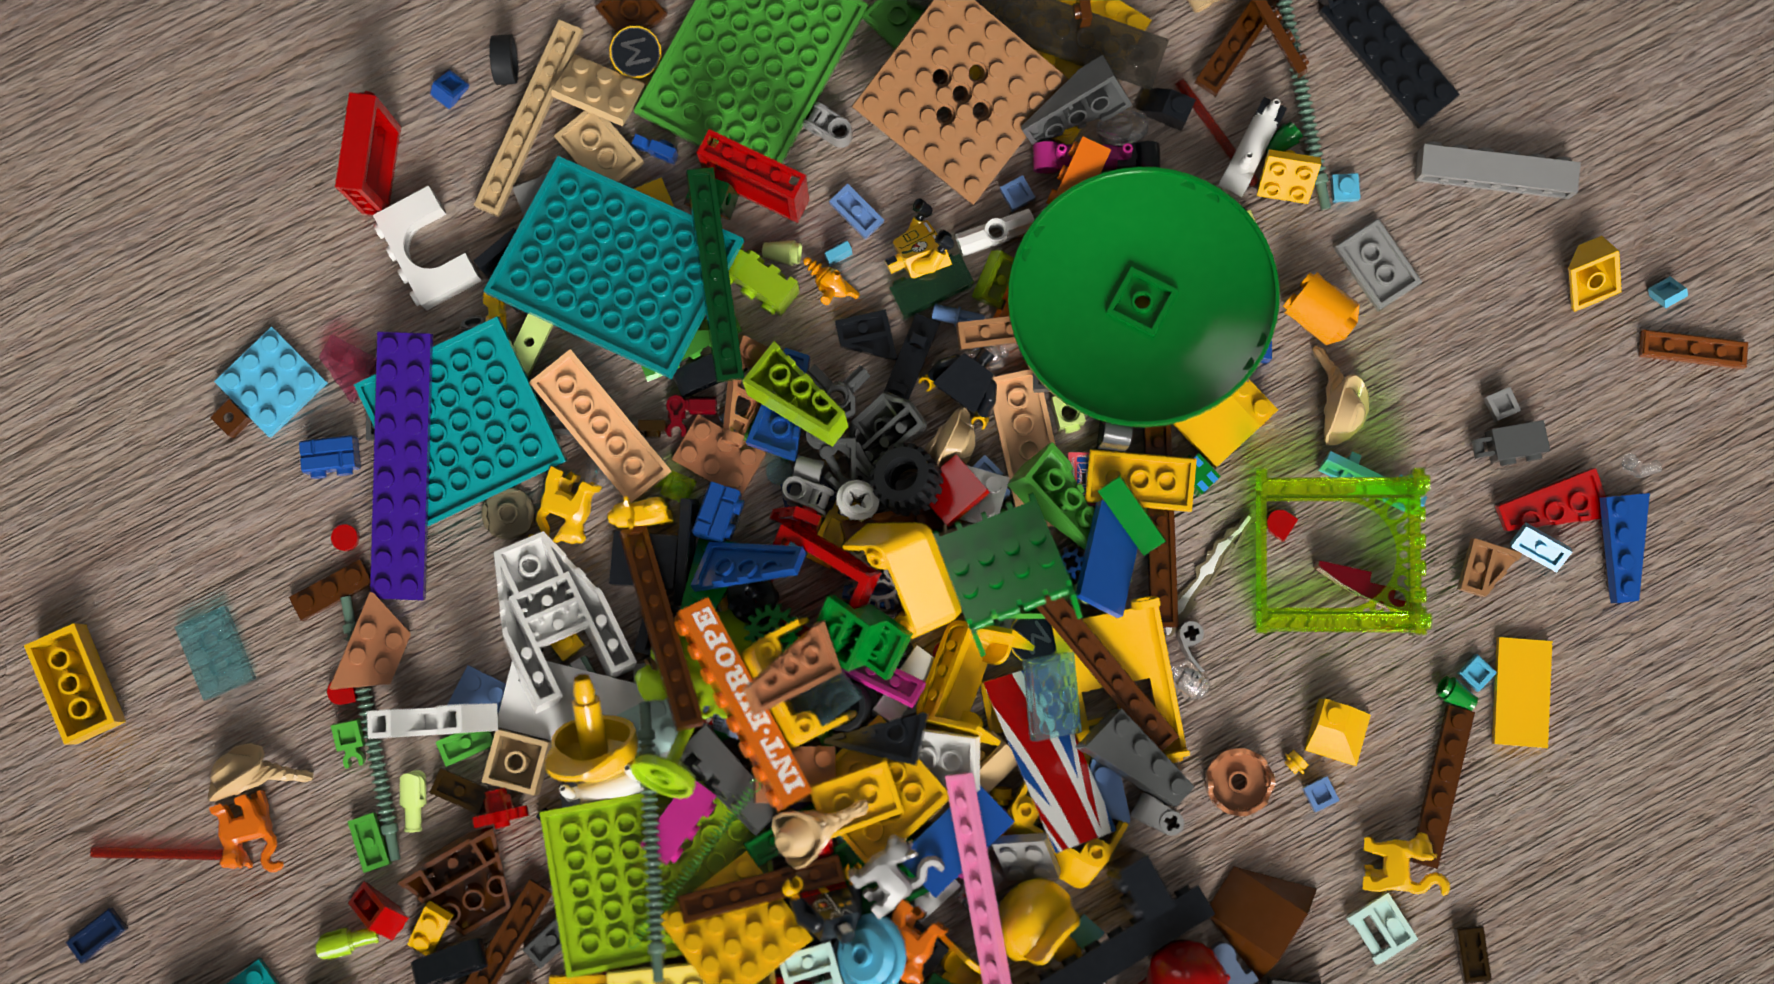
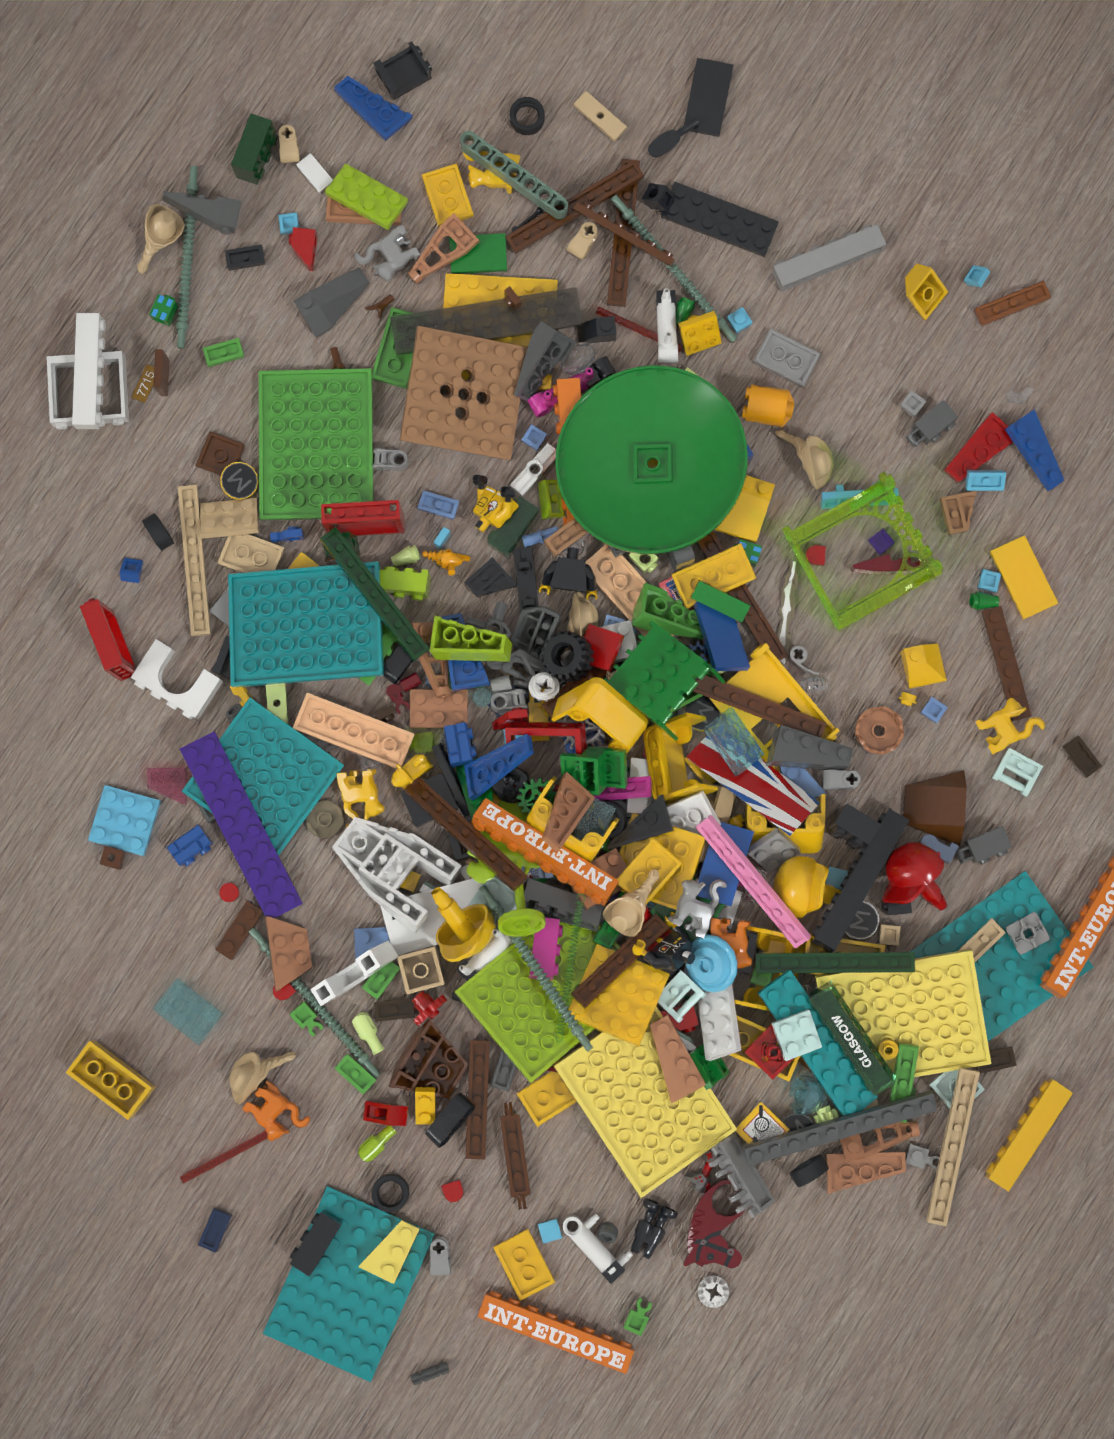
camera: 25 degrees left, 0 degrees up
(1370, 551) = (881, 541): none -> dark purple tile

